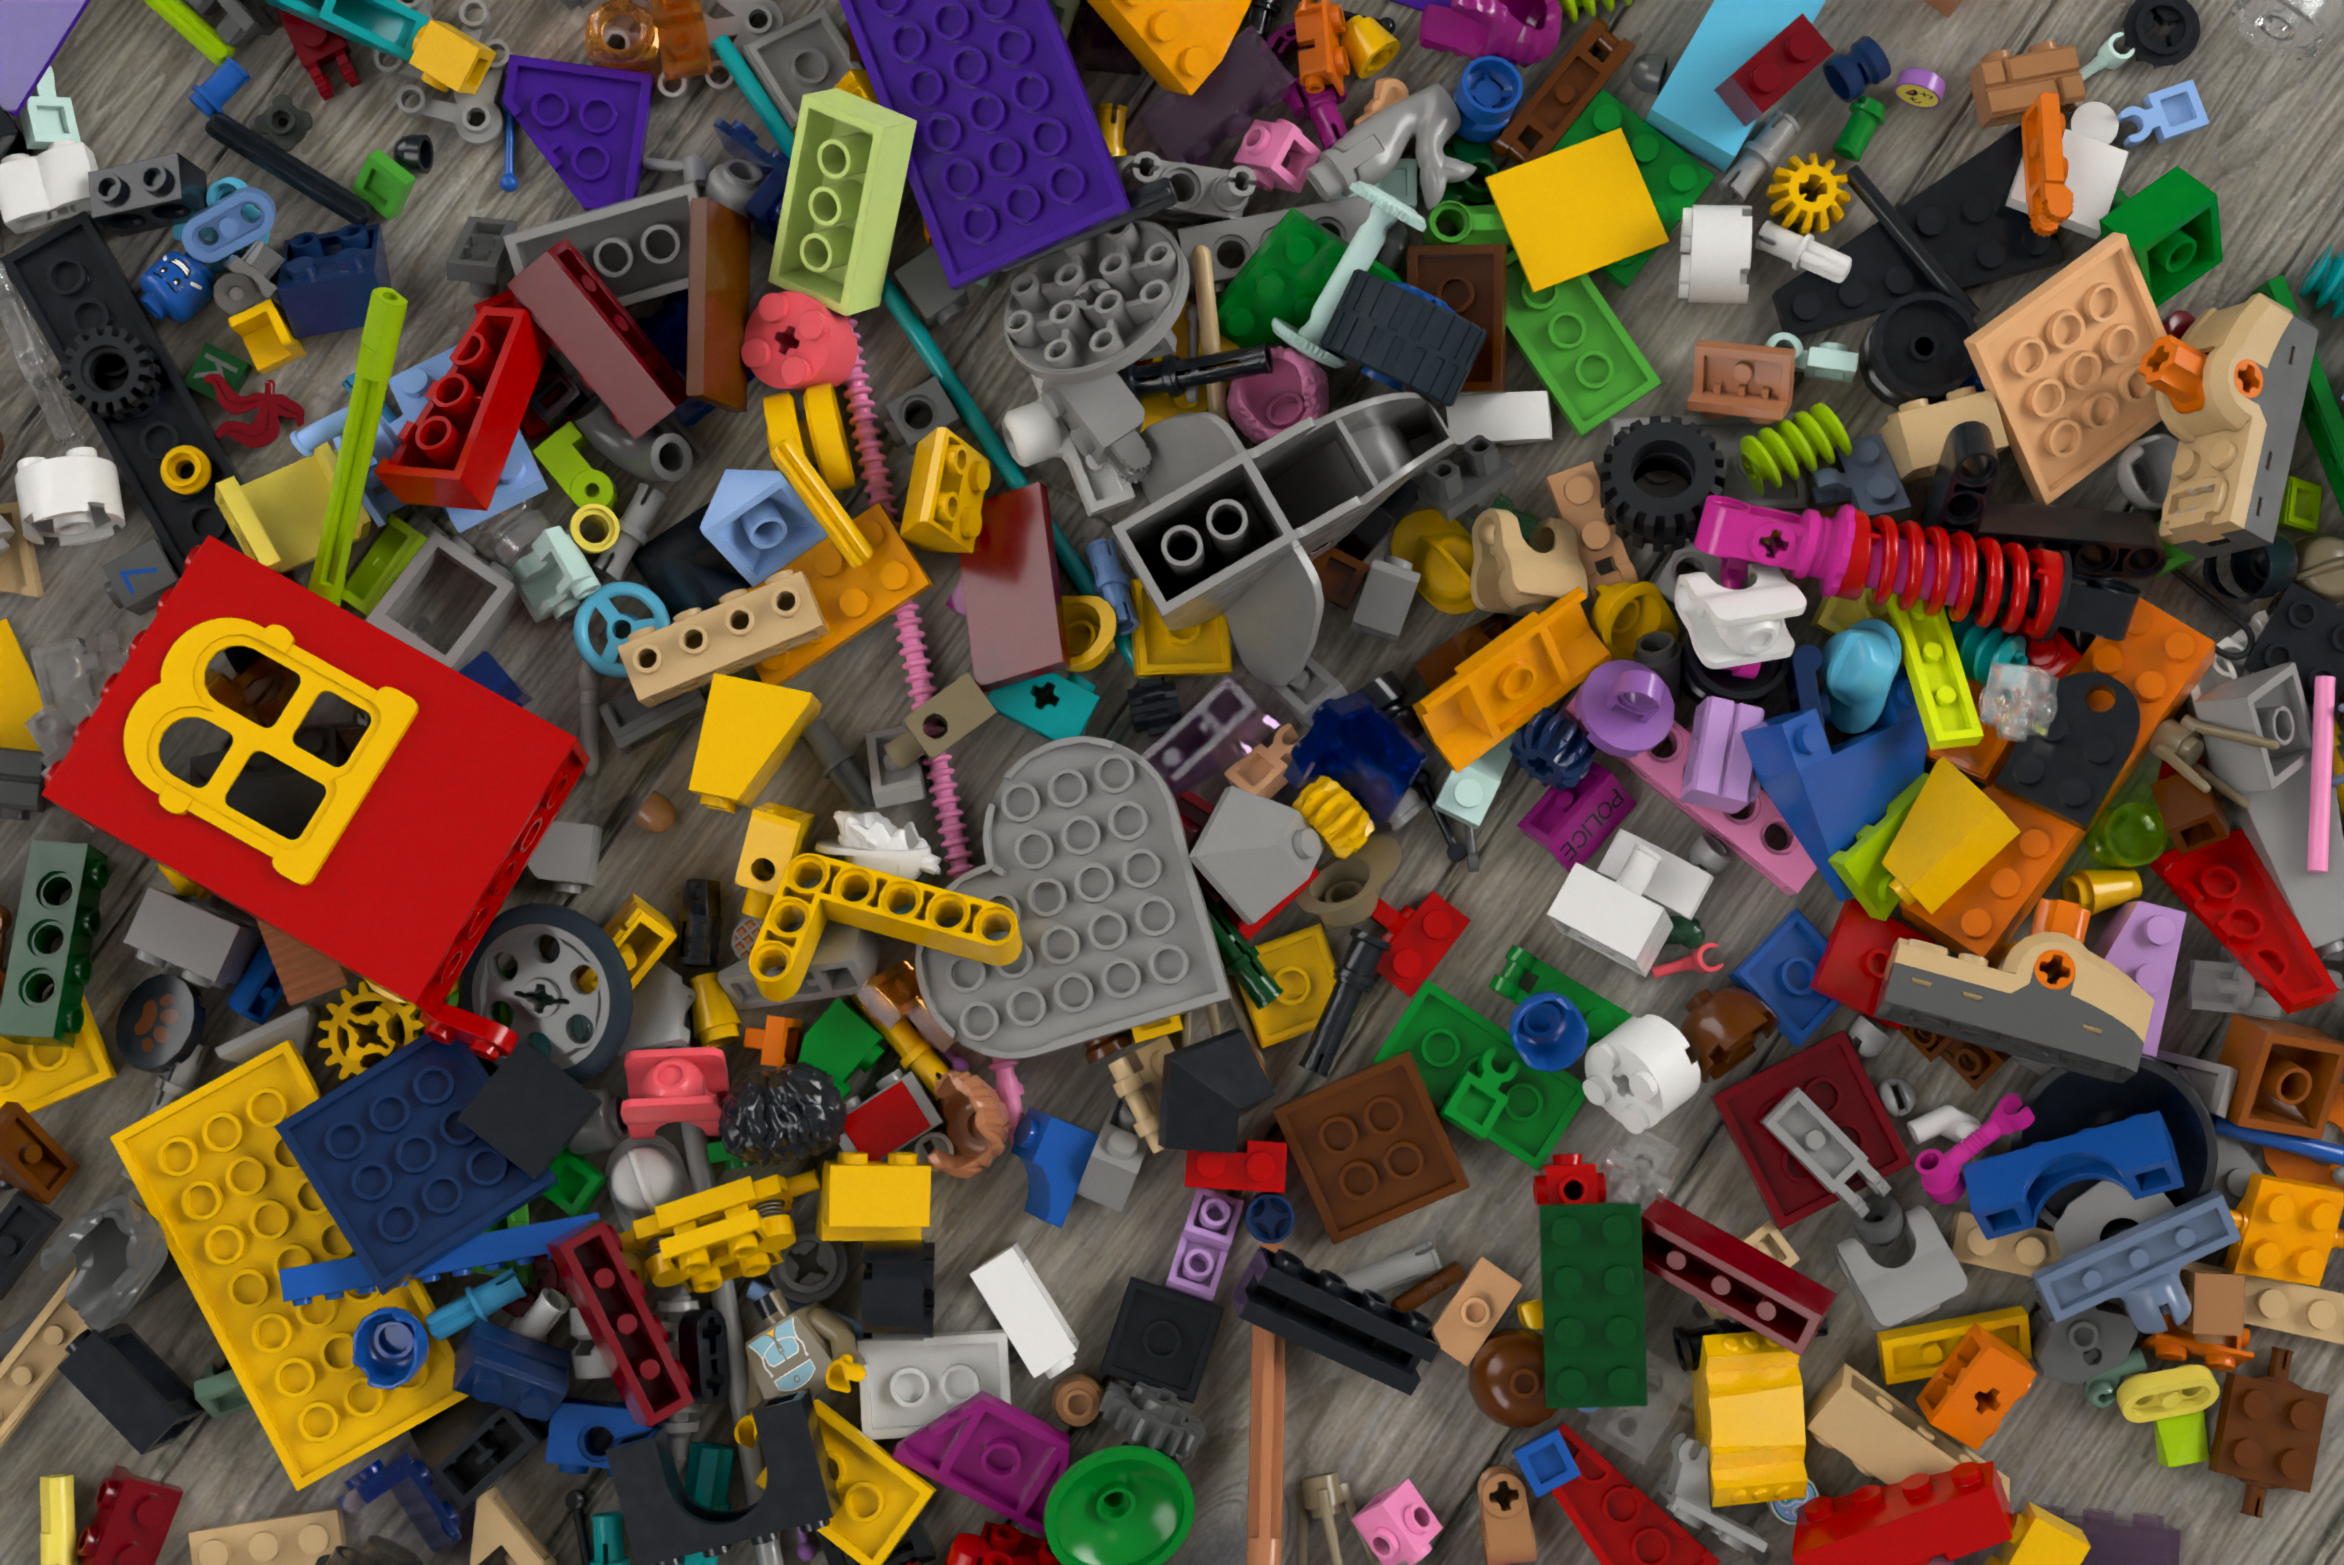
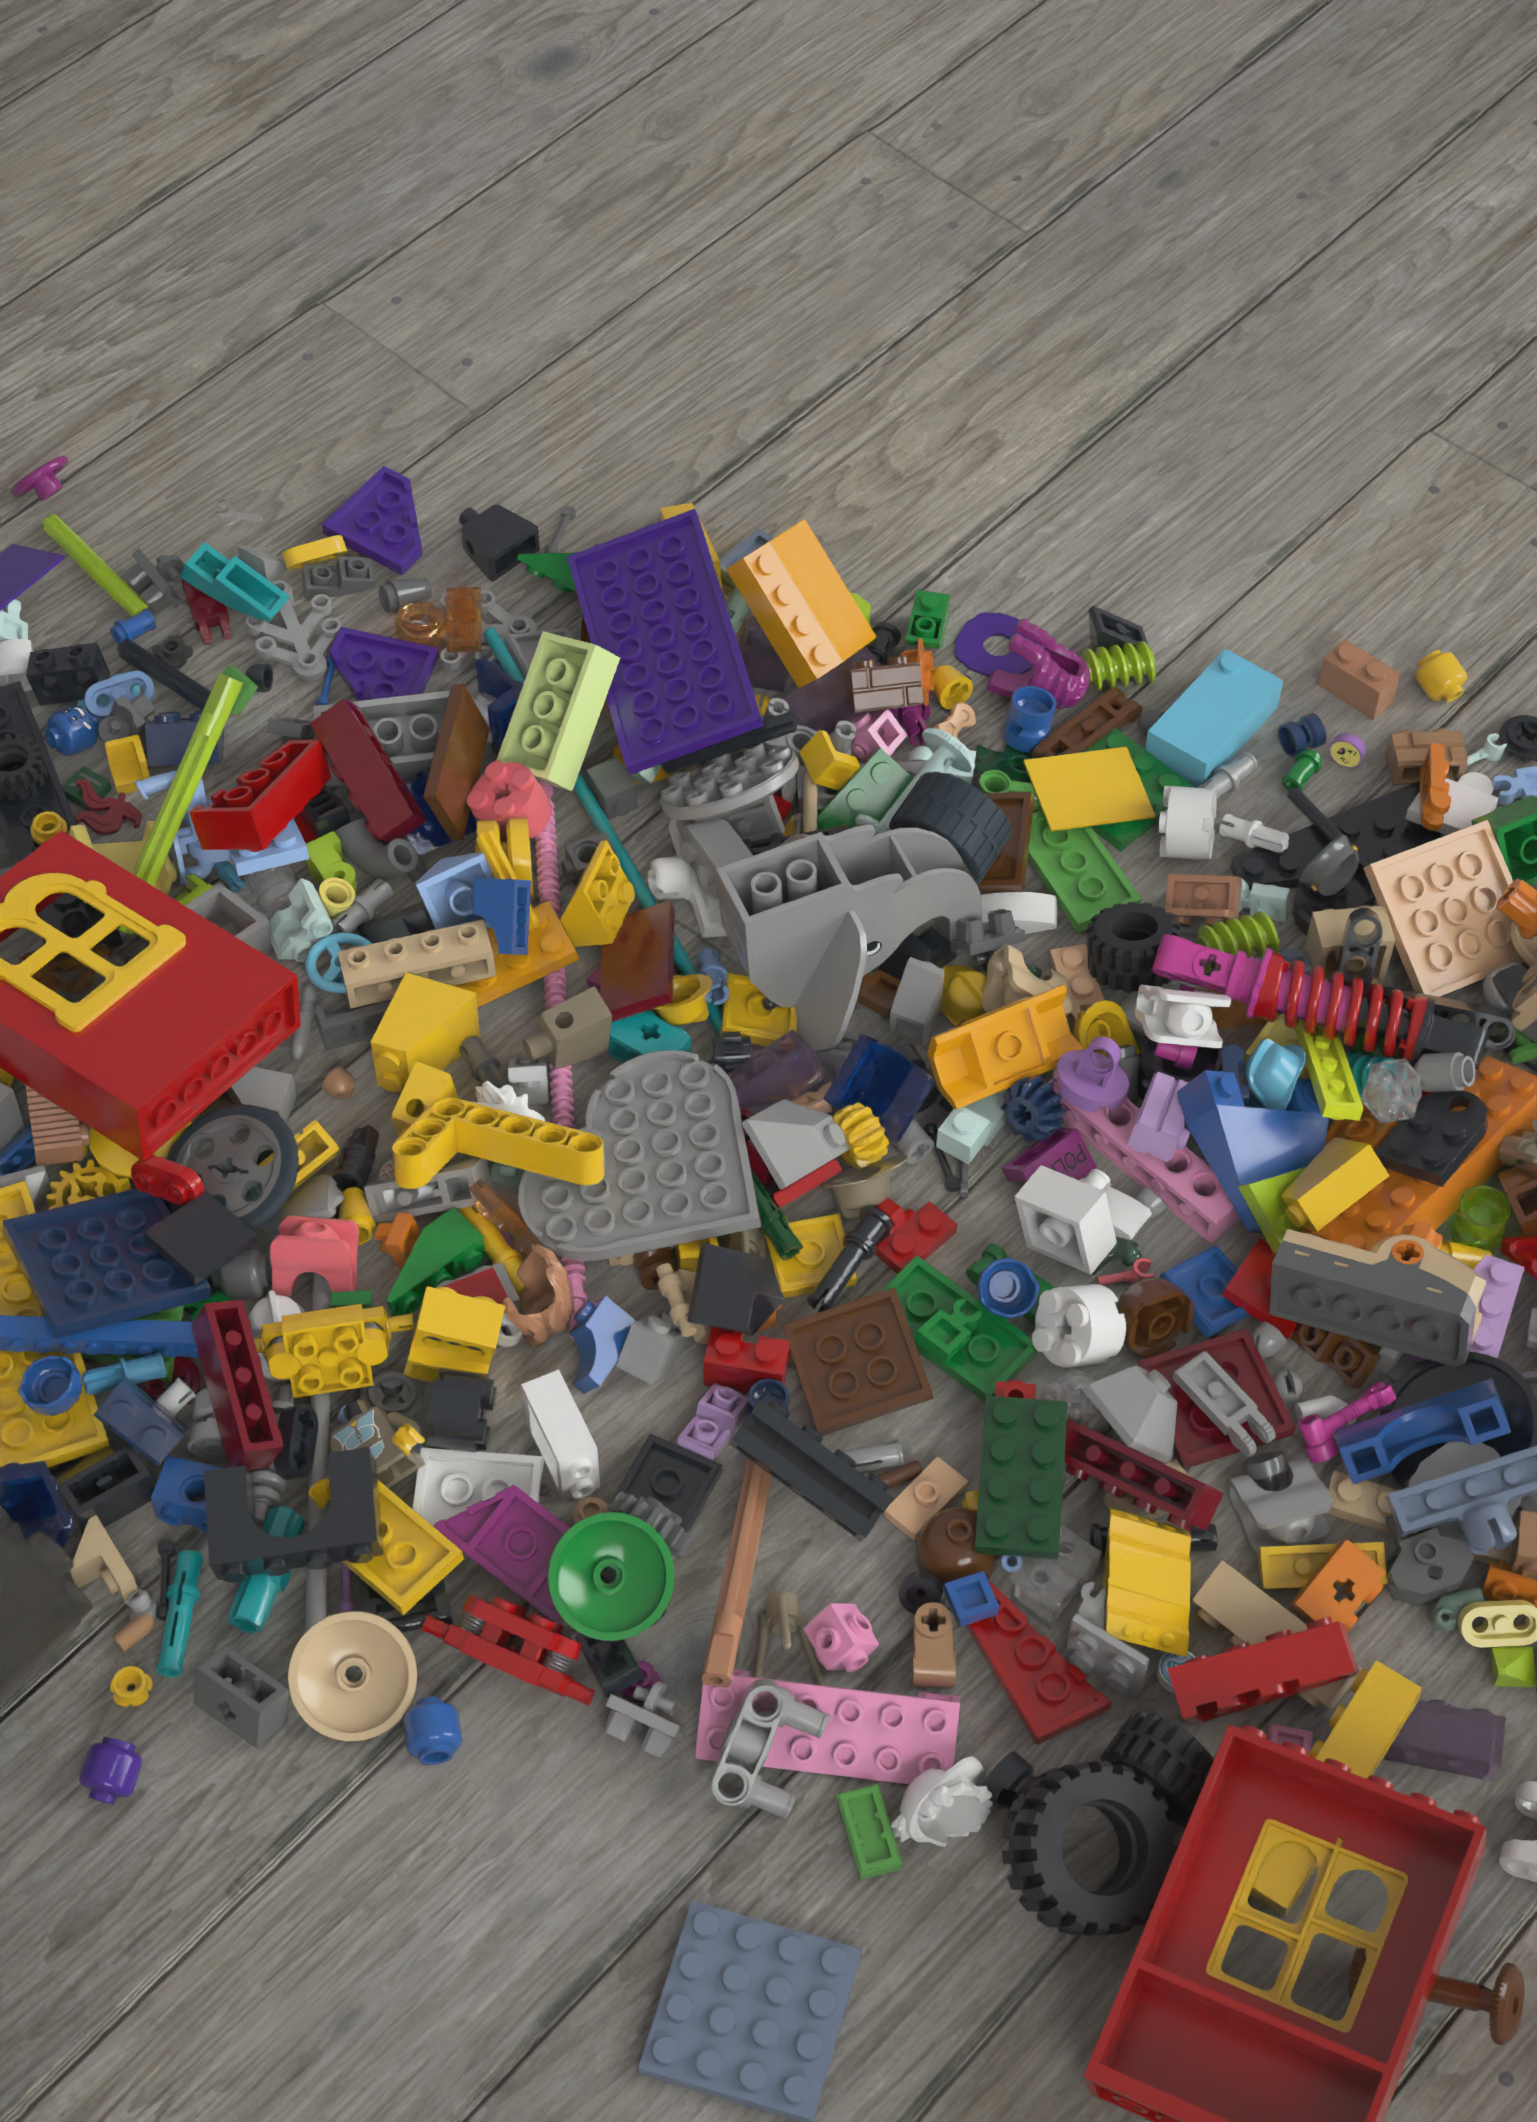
camera: 10 degrees right, 30 degrees down
(450, 58) = (300, 618): yellow brick -> none
(782, 1115) = (393, 1253): black hair -> none
(826, 553) = (506, 908): none -> blue arch
(1217, 241) = (825, 764): none -> yellow panel
(1285, 98) = (883, 685): none -> brick
(1377, 143) = (985, 726): light grey piece -> none
(1483, 1445) = (918, 1589): none -> black tile
(1722, 1186) = (1138, 1409): none -> light grey slope
(1774, 70) = (1237, 708): dark red brick -> none
(1823, 185) = (1261, 800): yellow gear -> none
(1916, 336) = (1332, 867): none -> dark grey piece
(2083, 658) = (1445, 1071): none -> light grey brick

